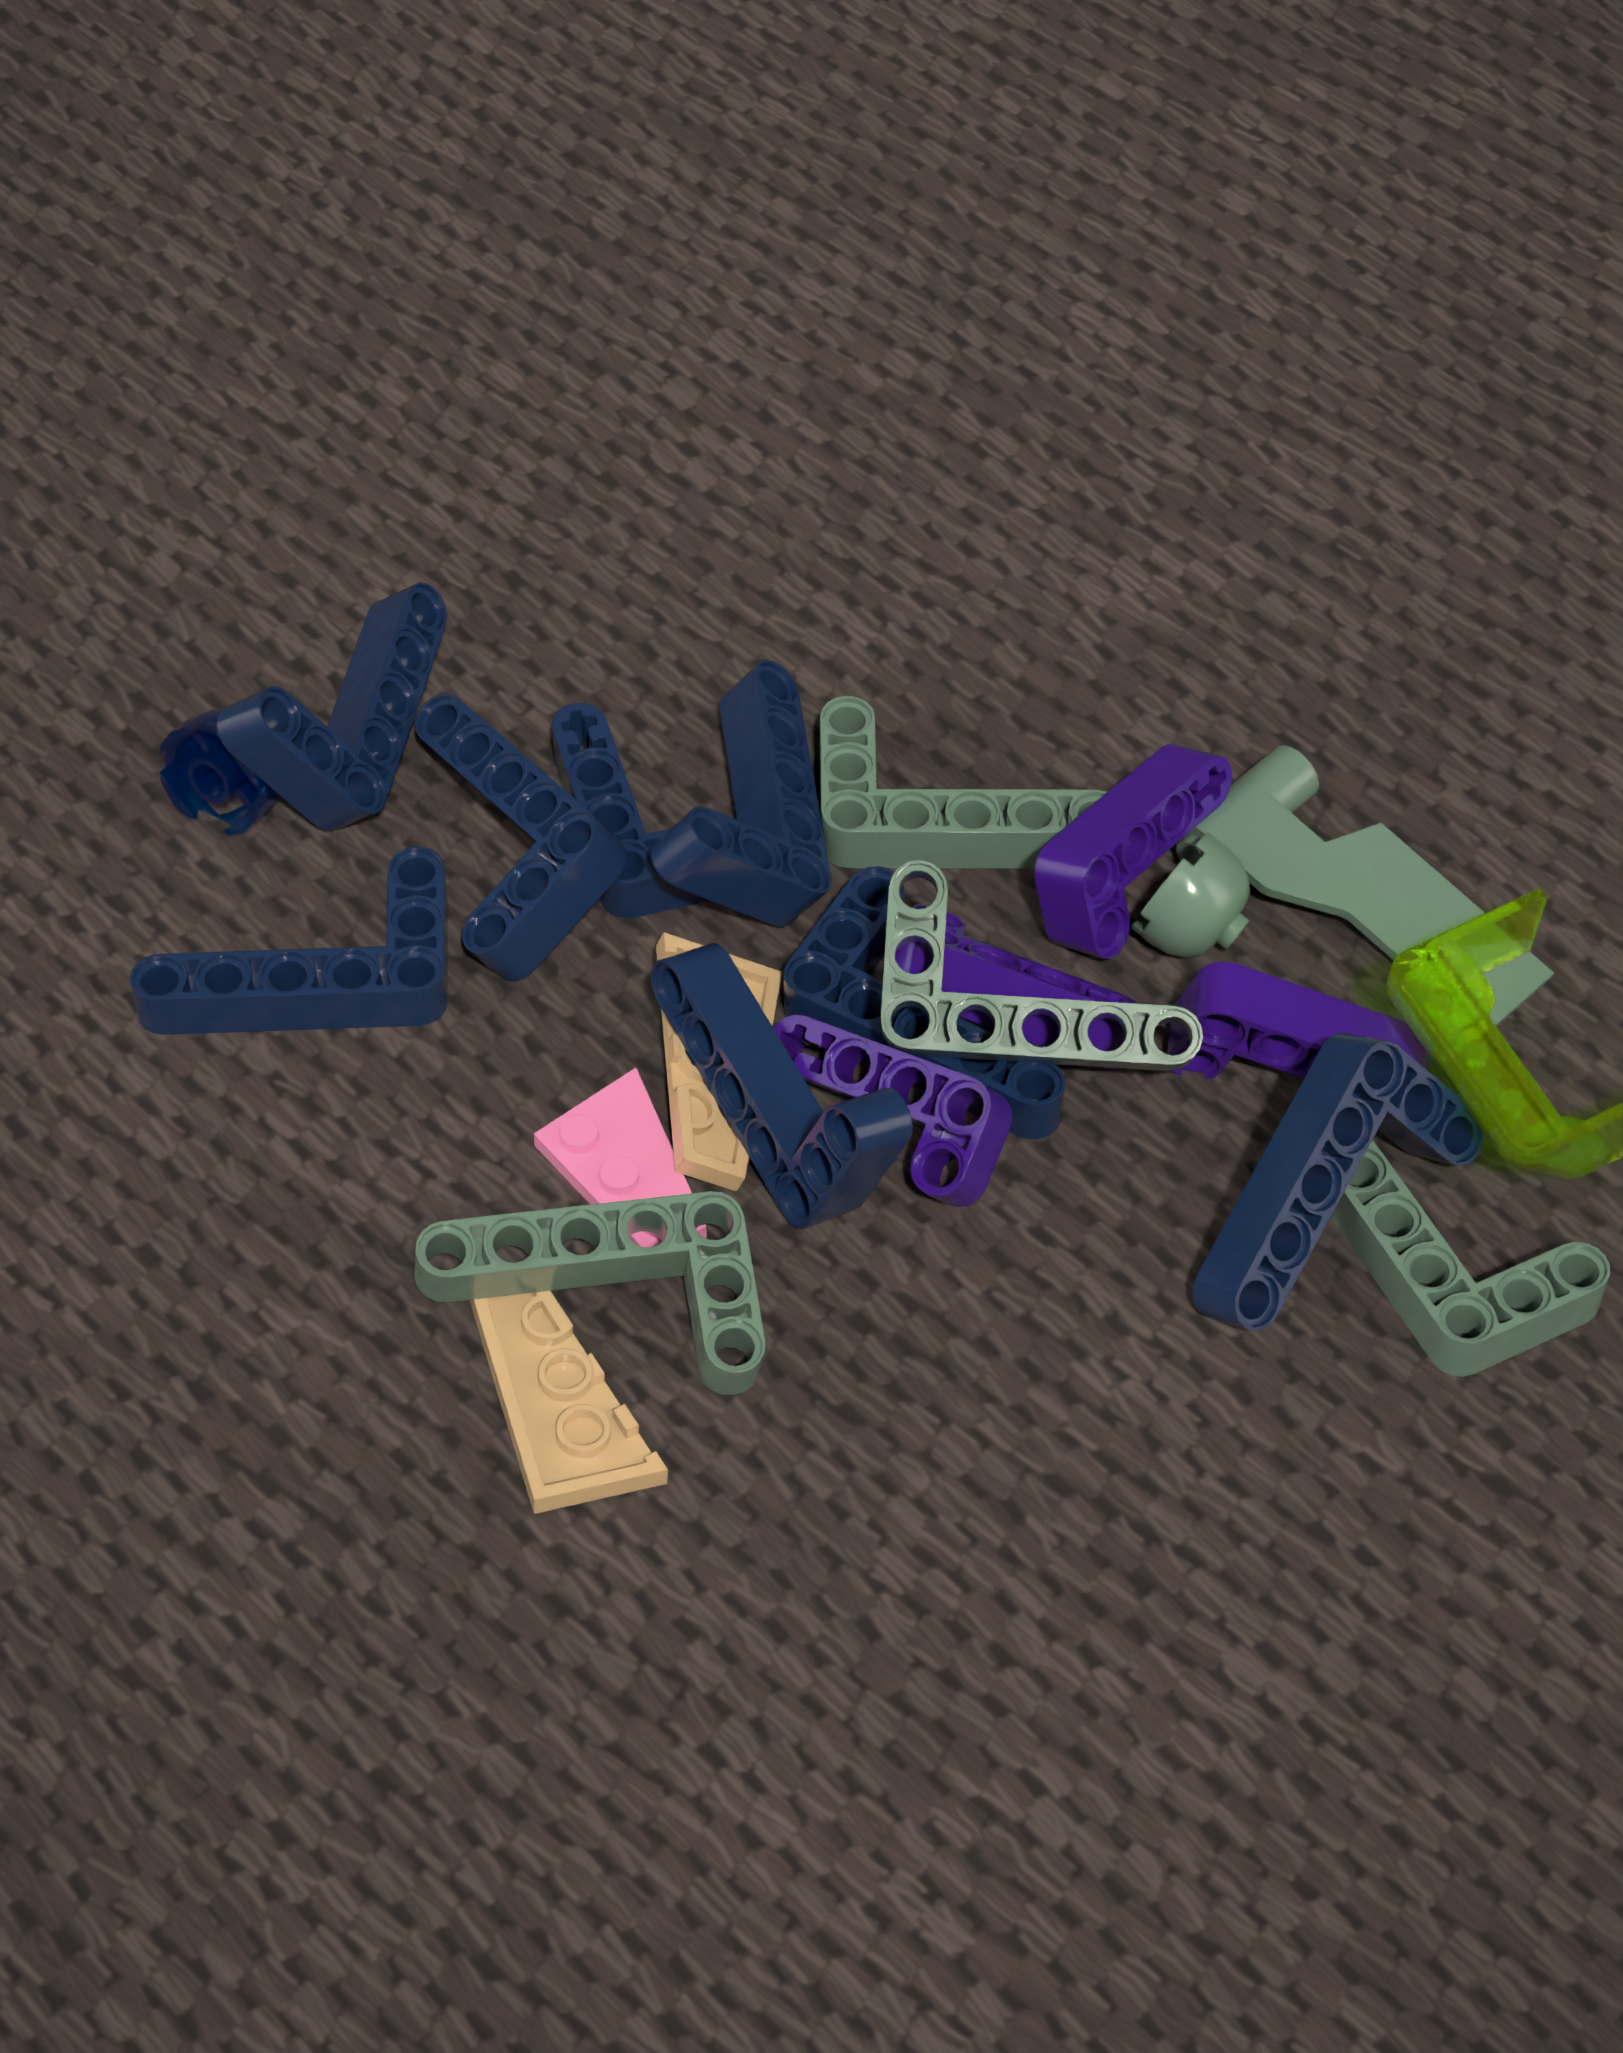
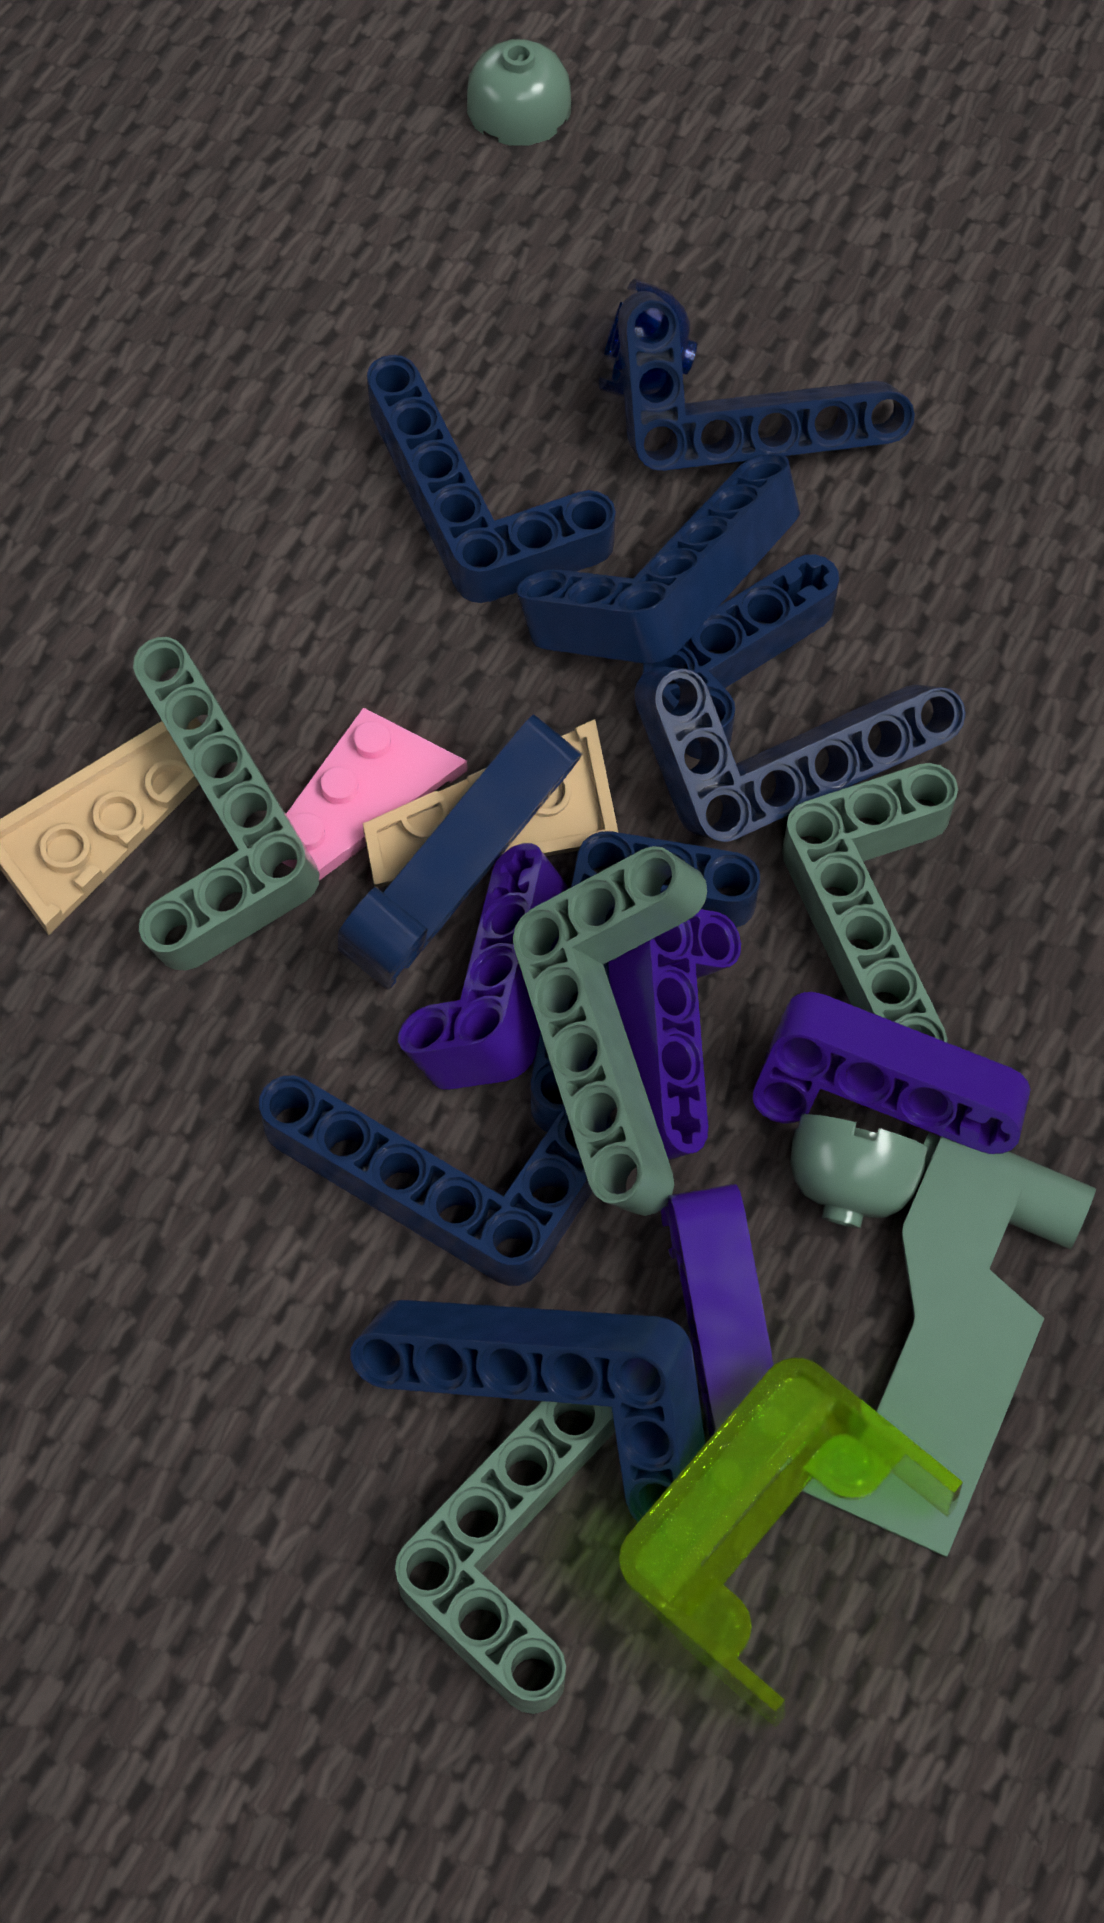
camera: 70 degrees right, 10 degrees up
(1087, 1220) = (437, 1184): none -> dark blue beam

